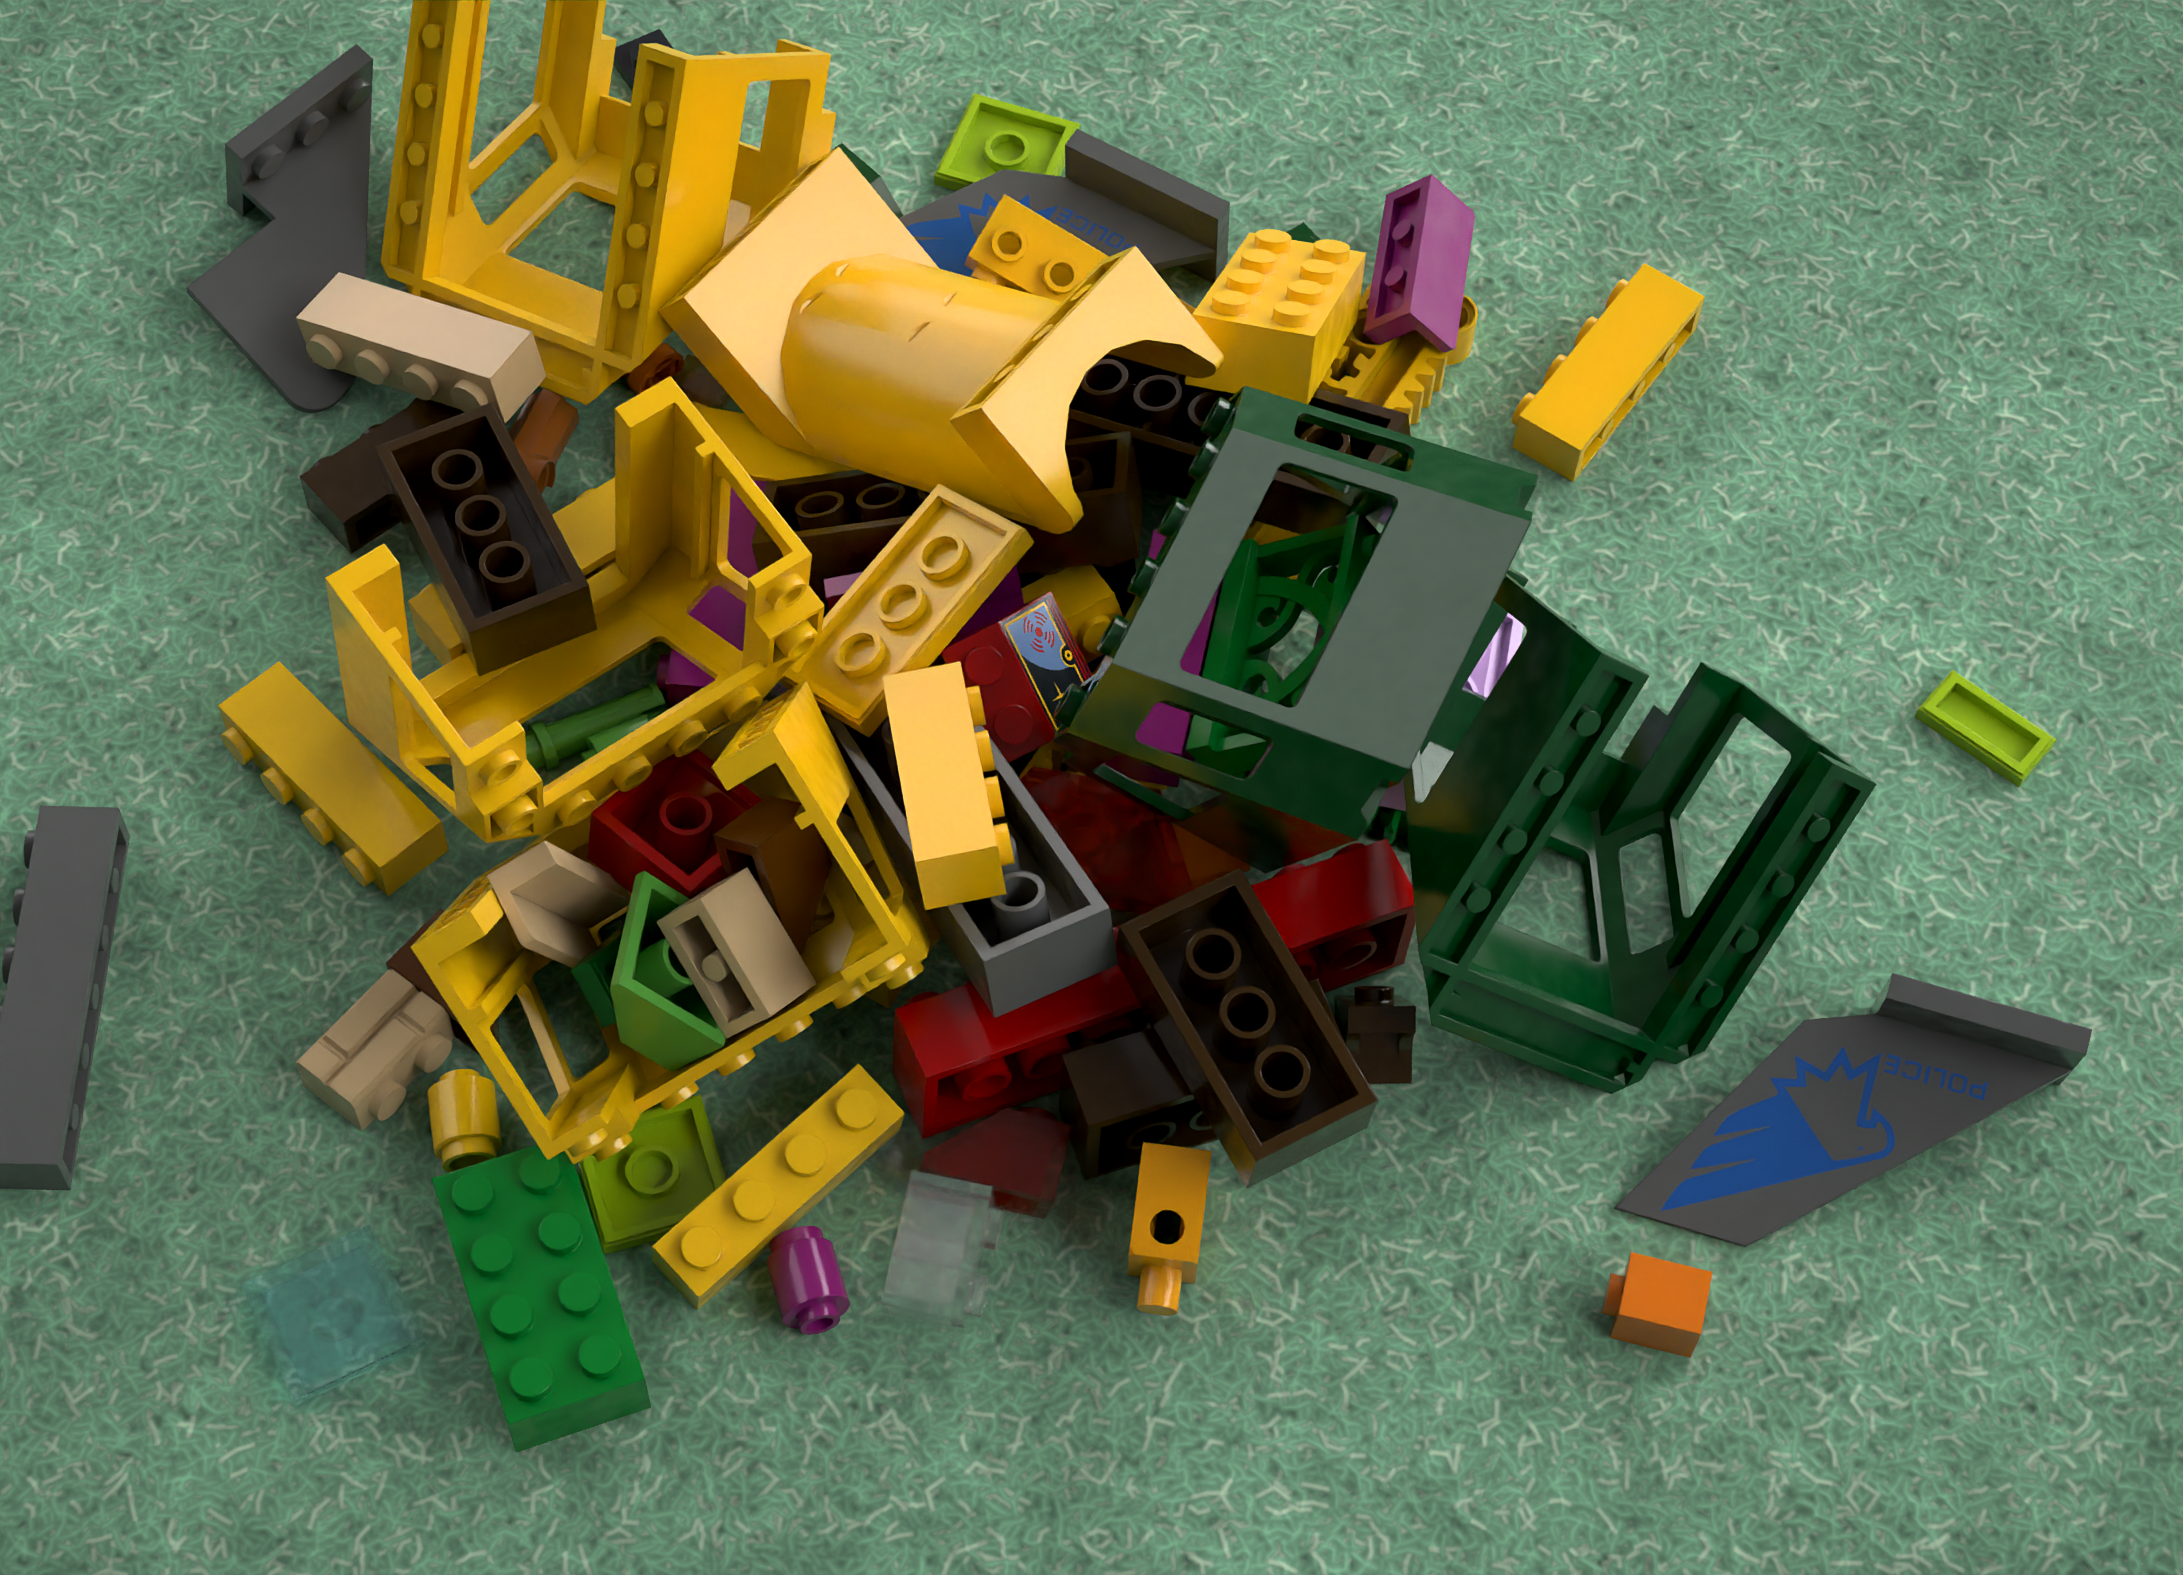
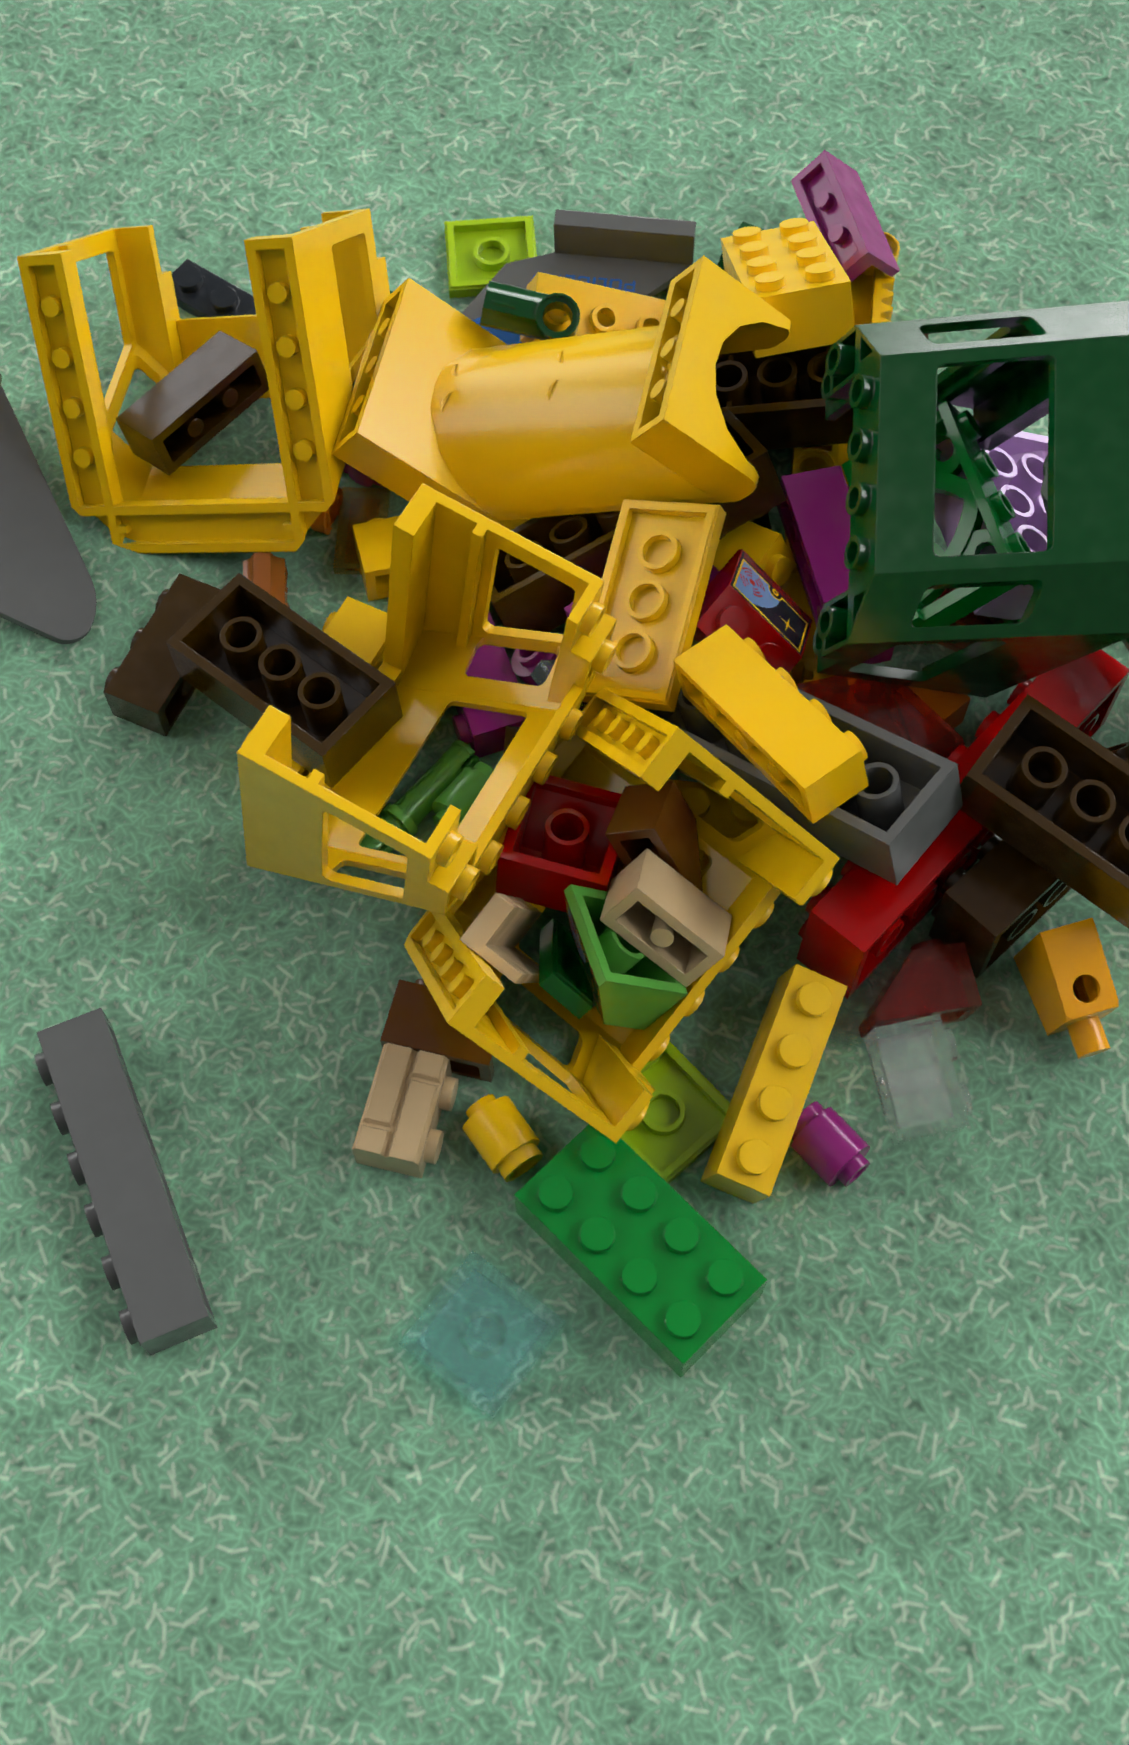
camera: 20 degrees left, 5 degrees up
(332, 779) = (251, 914): yellow brick -> none
(421, 346) = (147, 555): tan brick -> none
(550, 199) = (194, 402): none -> dark brown brick
(961, 235) = (523, 311): none -> dark green piece
(1606, 371) = (1001, 241): yellow brick -> none

